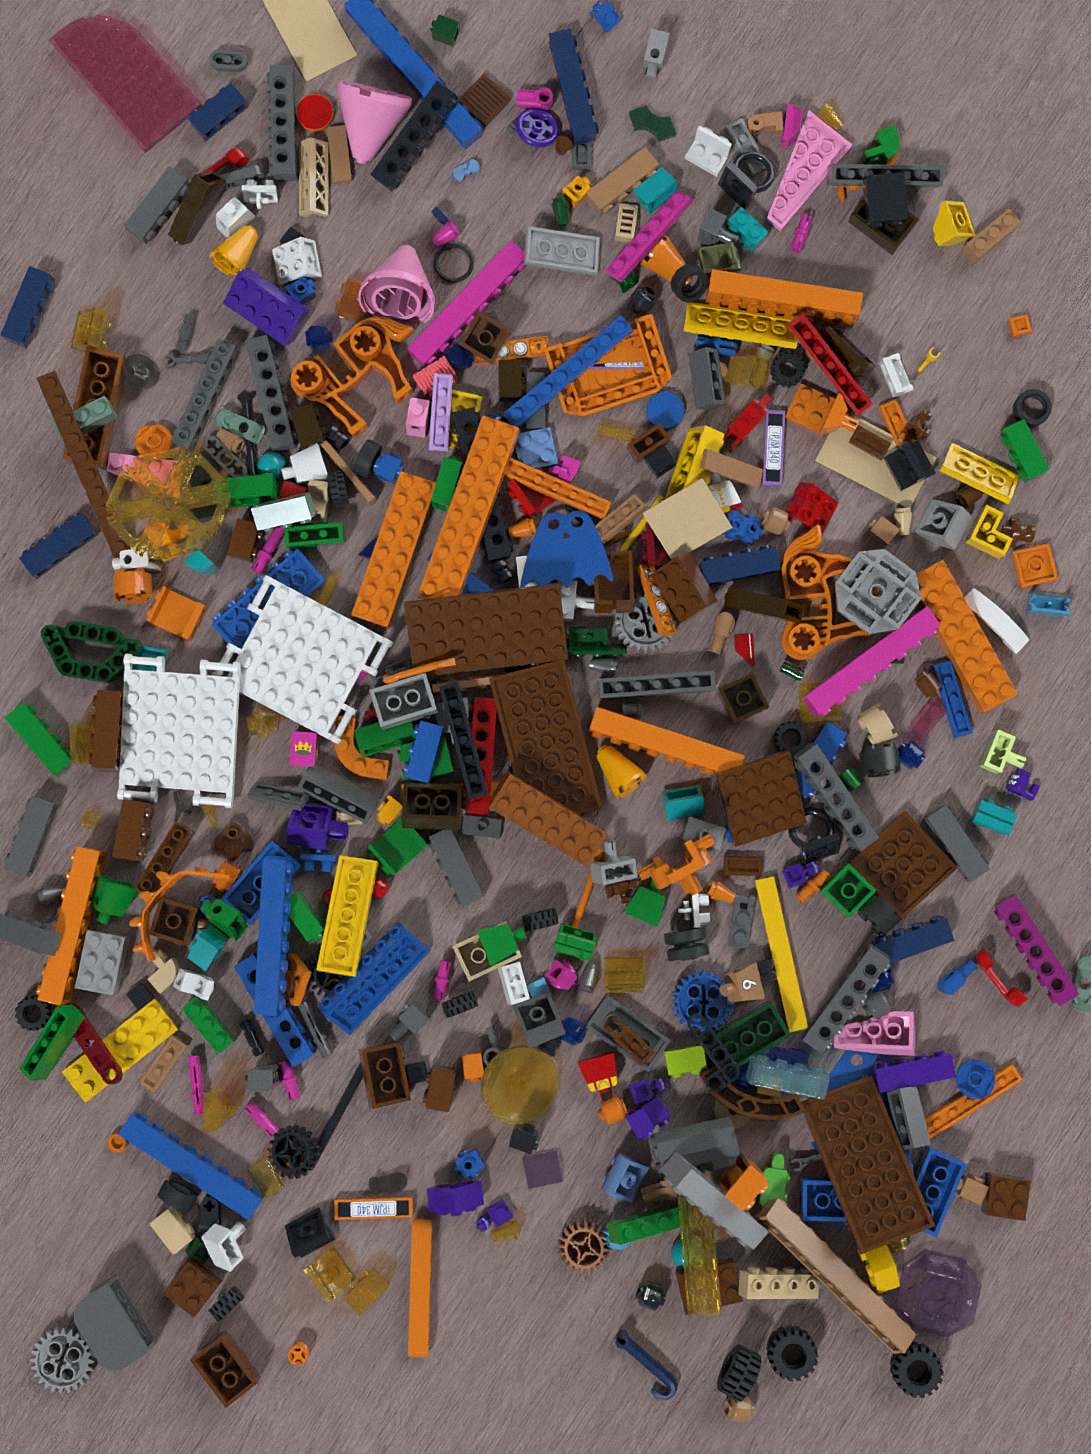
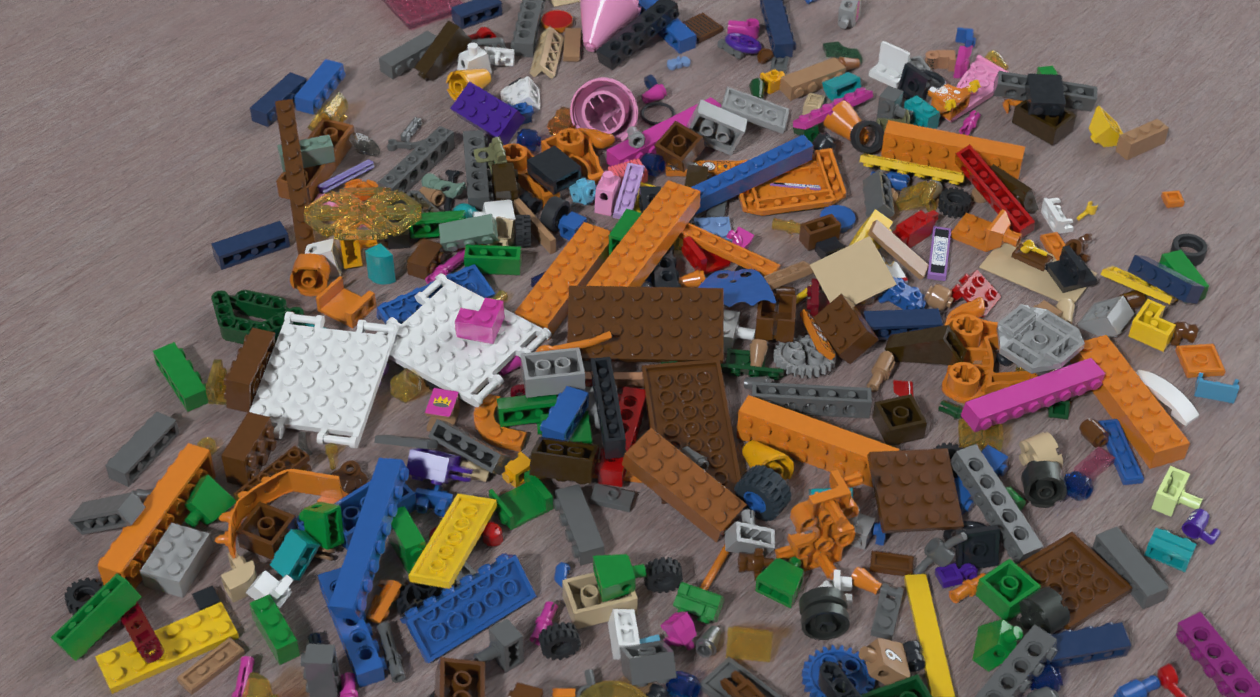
camera: 10 degrees right, 40 degrees down
(68, 281) = (319, 86): none -> blue brick
(132, 425) = (345, 176): none -> axle
(290, 394) = (495, 152): none -> olive piece
(326, 652) = (480, 324): none -> dark pink brick
(356, 398) = (554, 170): none -> black brick
(391, 414) = (583, 191): none -> medium azure brick
(436, 330) = (635, 137): none -> light grey cone
(448, 924) = (561, 572): none -> blue arm
(522, 300) = (717, 127): none -> light grey brick
(553, 785) = (699, 459): none -> dark grey cone
(600, 634) = (758, 350): none -> medium nougat cone
(621, 816) = (763, 492): none -> black wheel
(659, 147) = (849, 63): none -> dark orange cone
(779, 208) = (952, 100): none -> orange torso
(785, 861) = (939, 552): none -> dark grey piece
(798, 85) = (965, 36): none -> blue bracket
(837, 951) = (995, 643): none -> green torso
(869, 438) = (1030, 246): none -> yellow hand
(1005, 467) = (1166, 279): none -> dark blue brick

